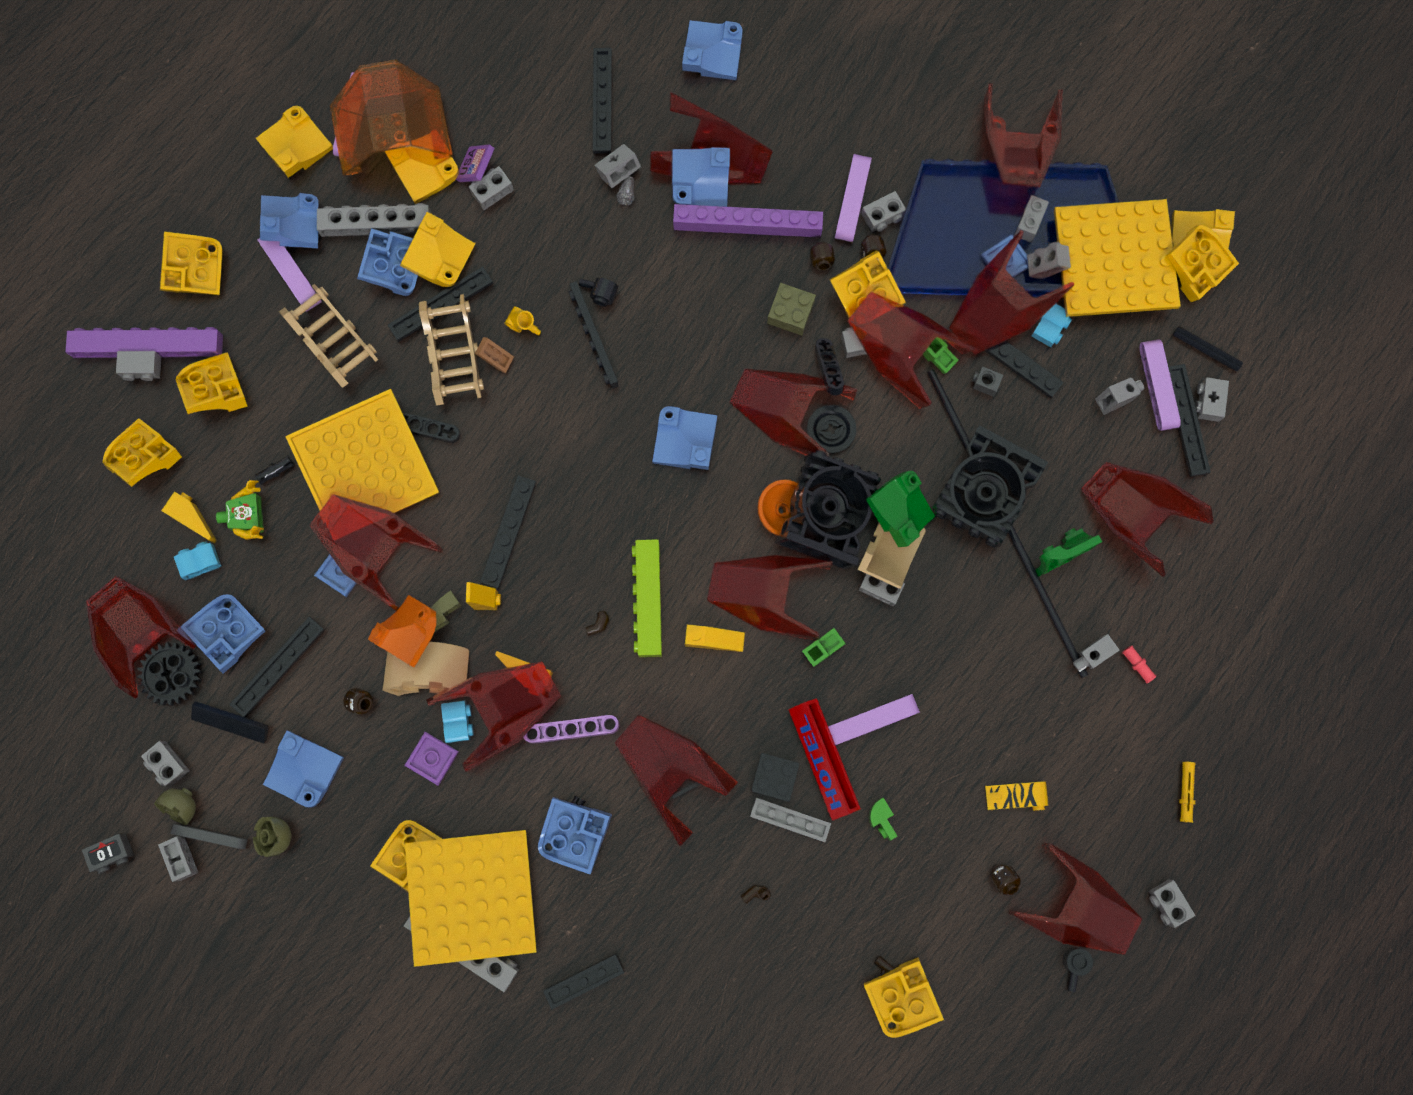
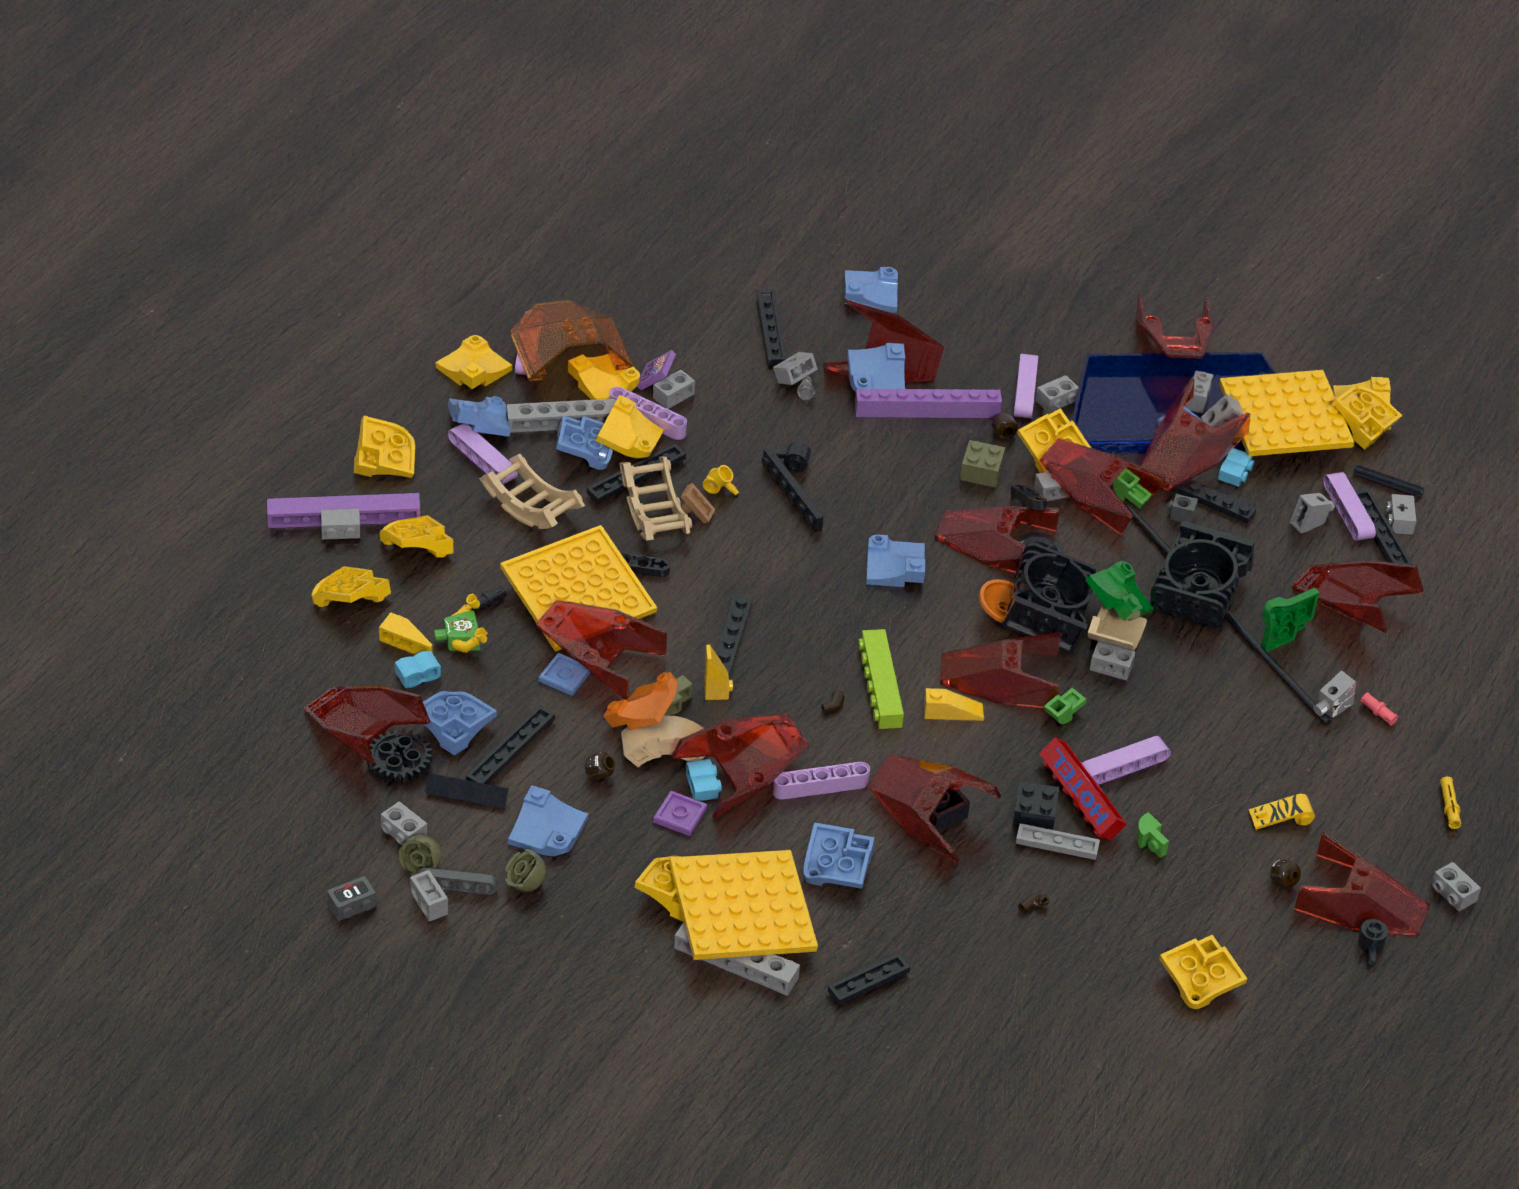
camera: 10 degrees left, 35 degrees down
(464, 228) = (672, 423): none -> lavender beam

